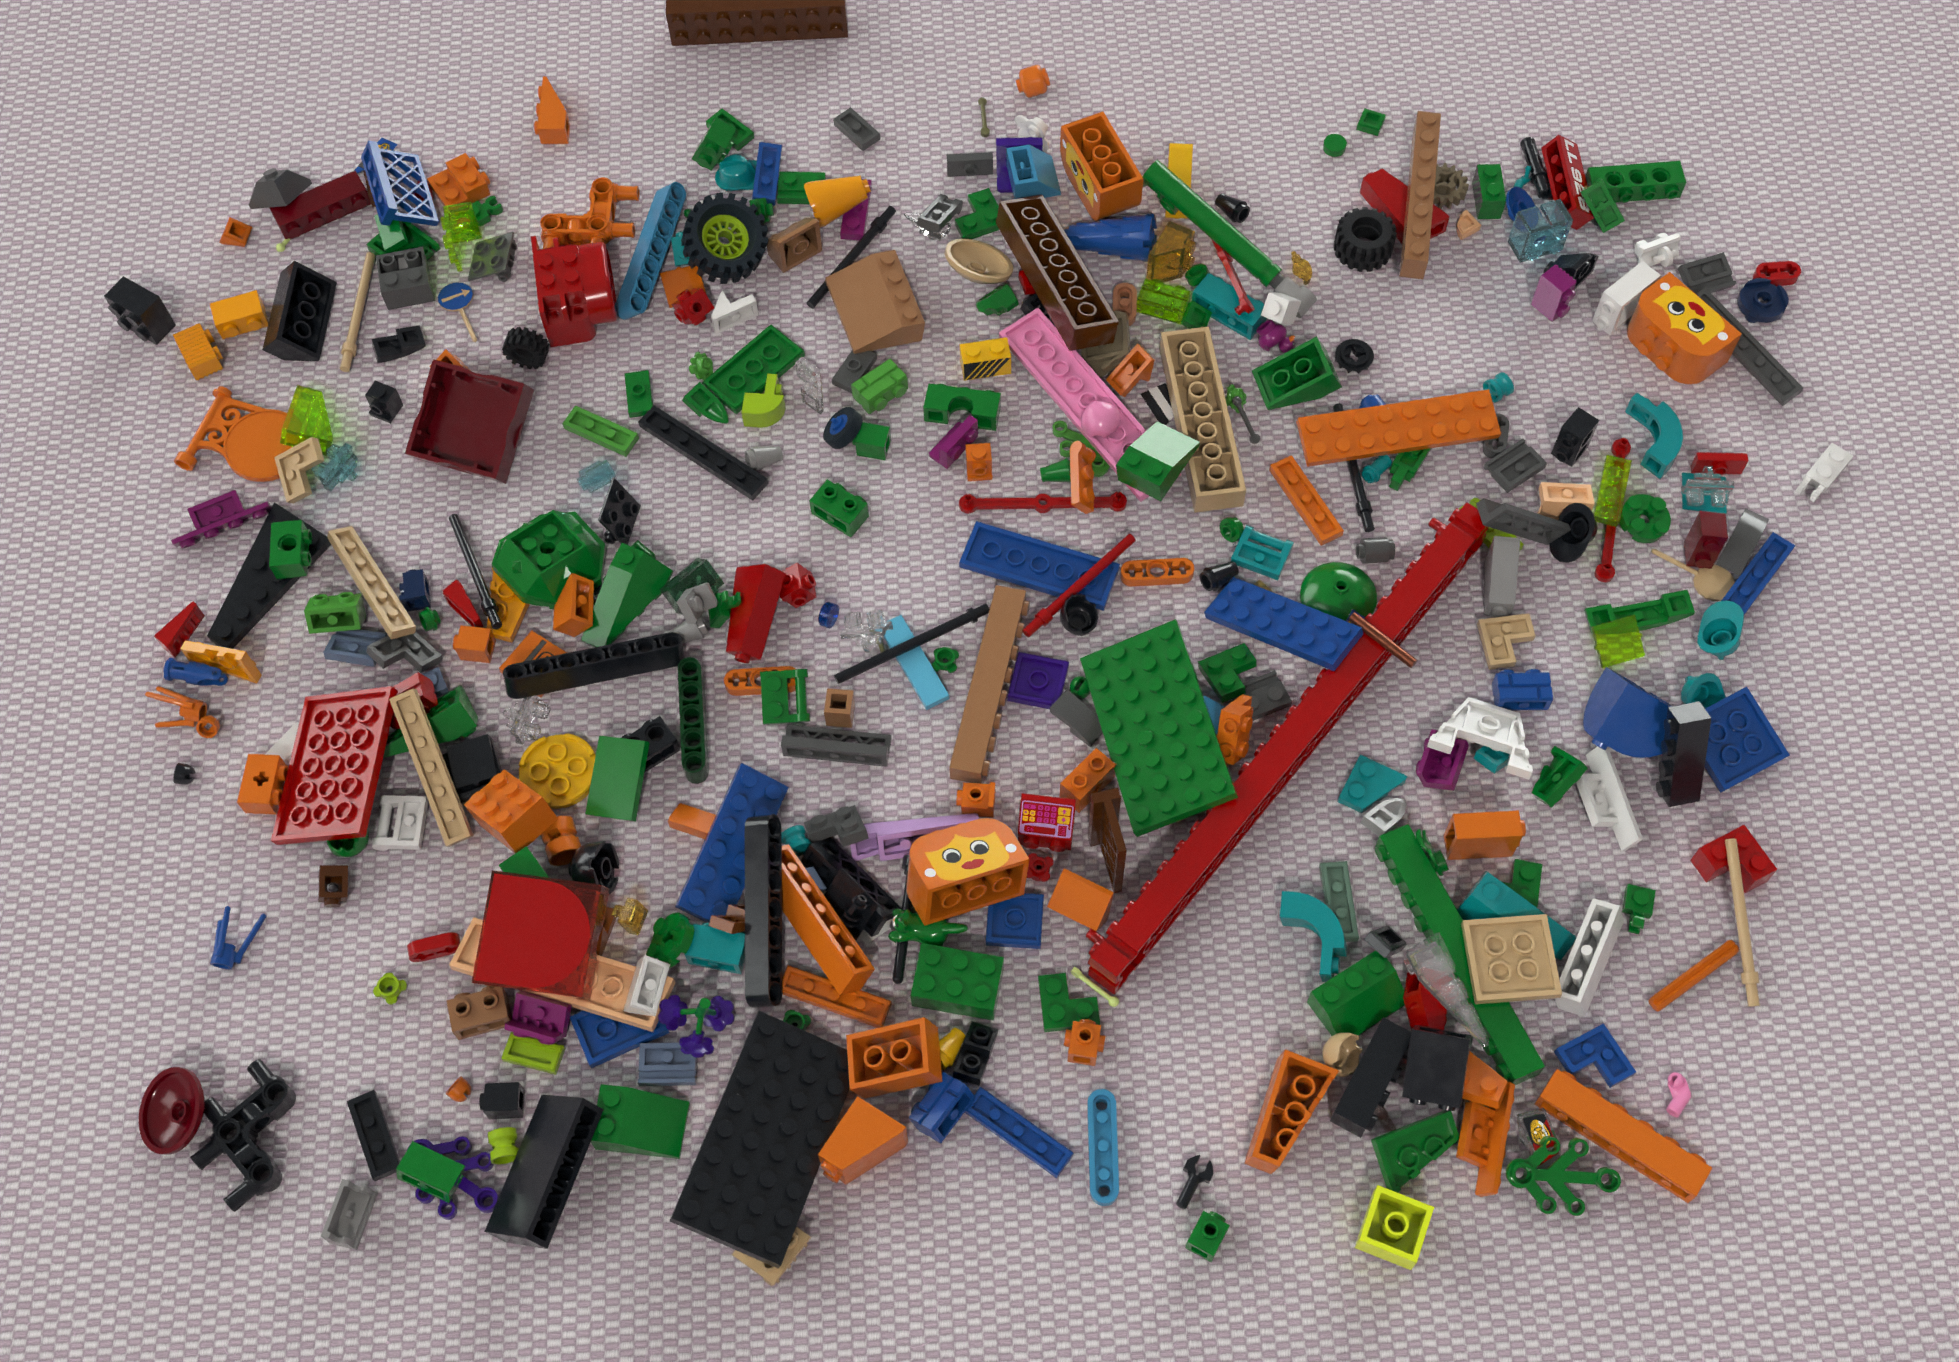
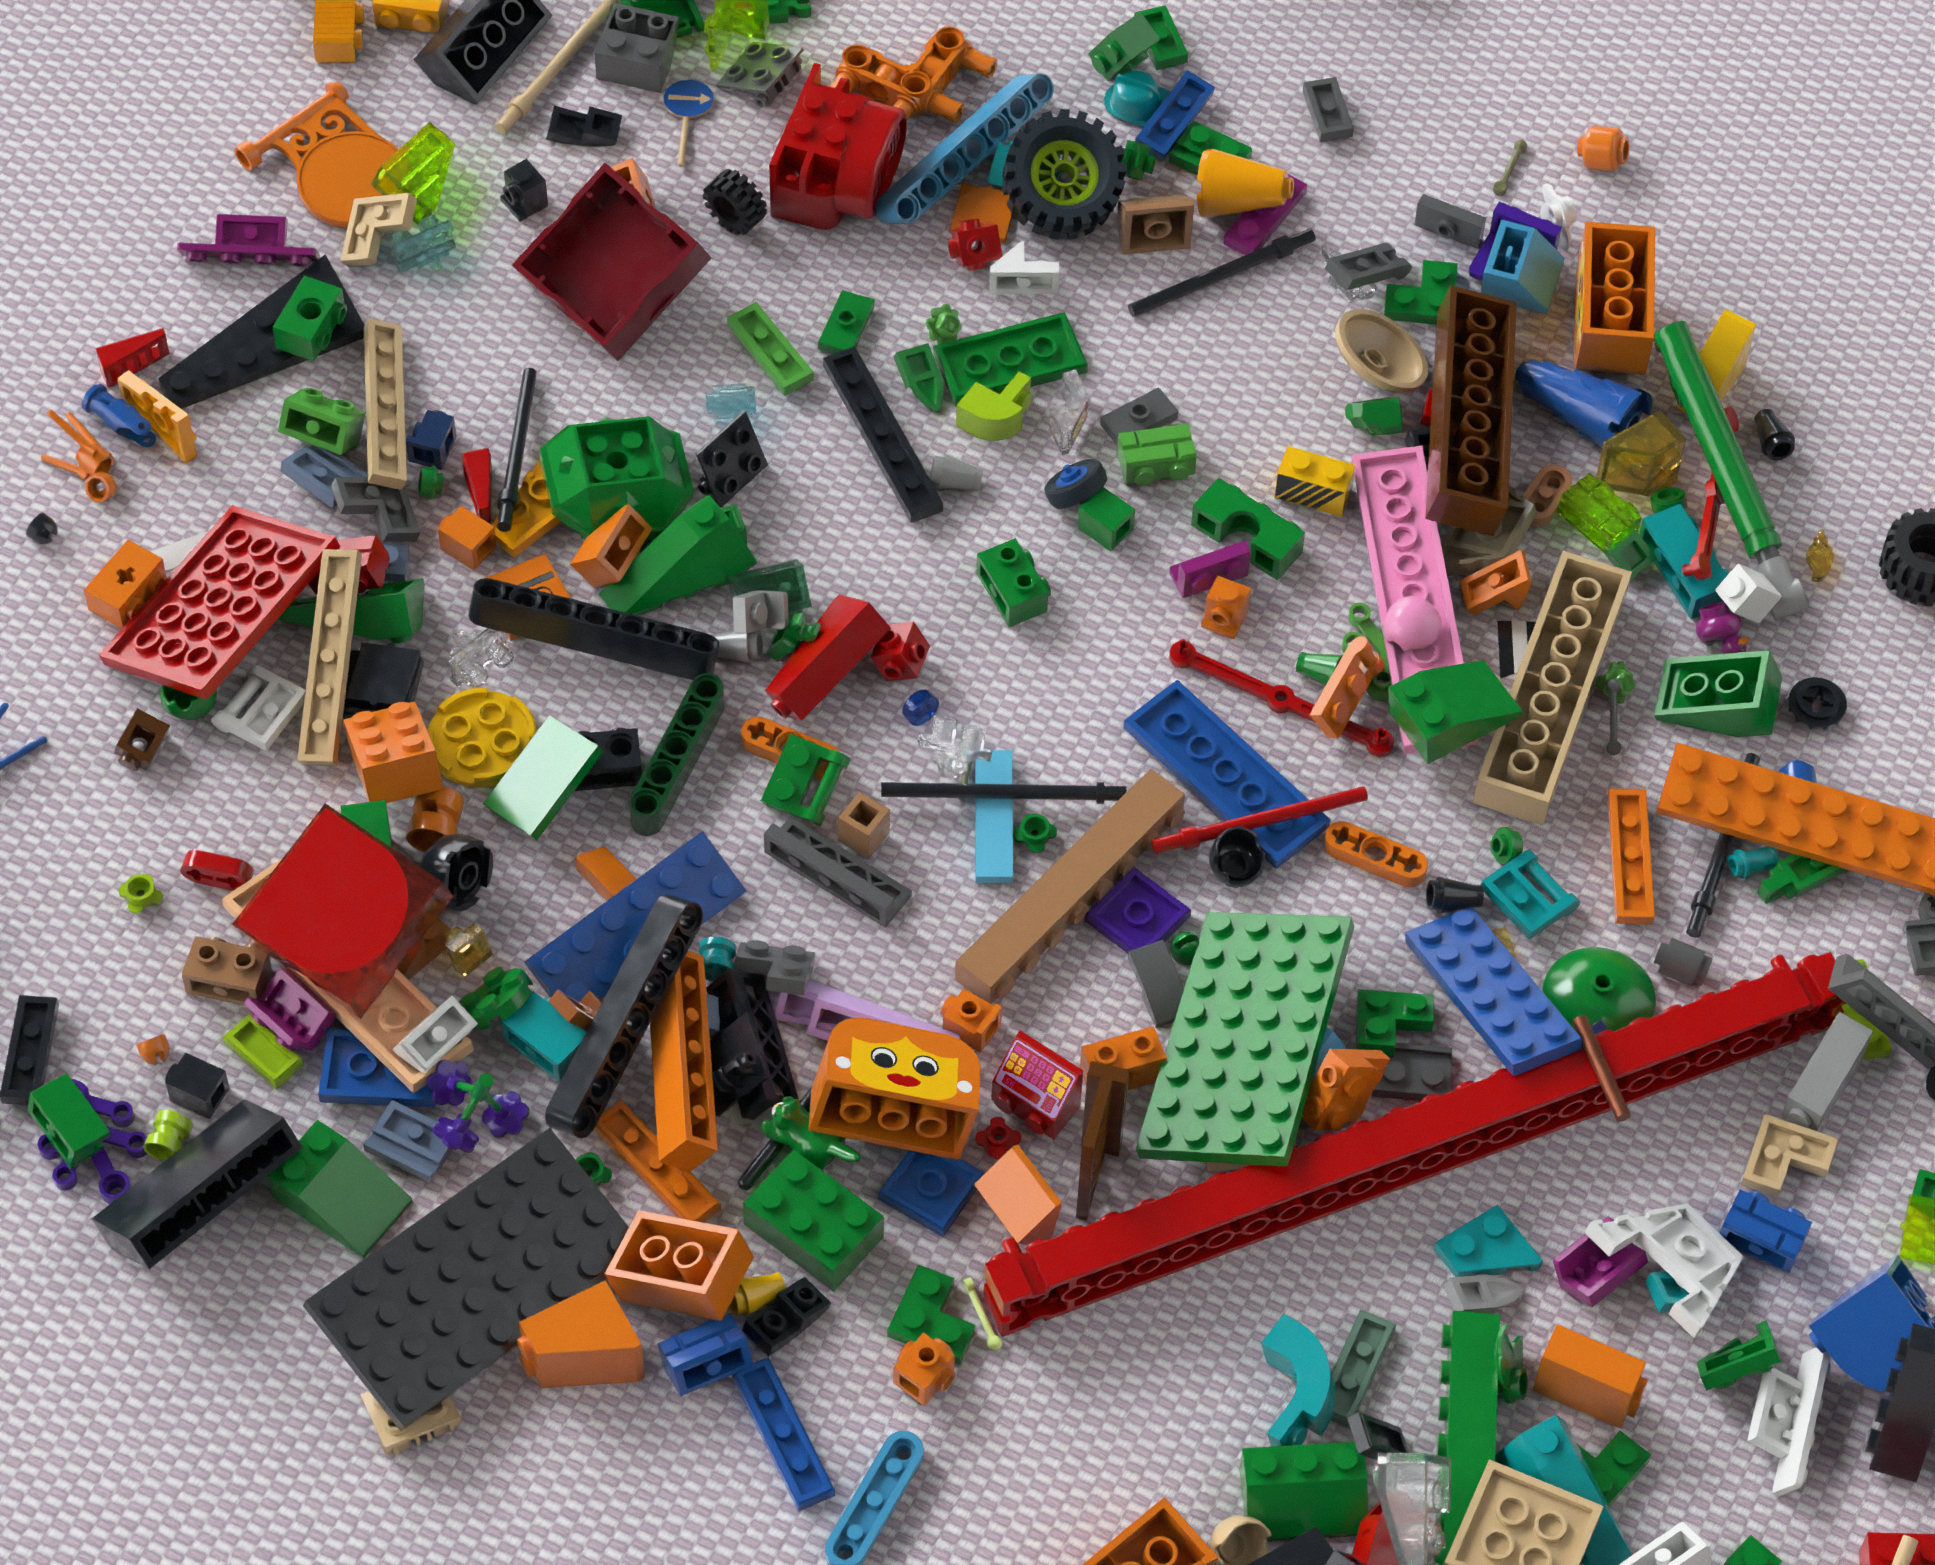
camera: 25 degrees right, 5 degrees down
(876, 303) = (1214, 346): medium nougat slope -> none

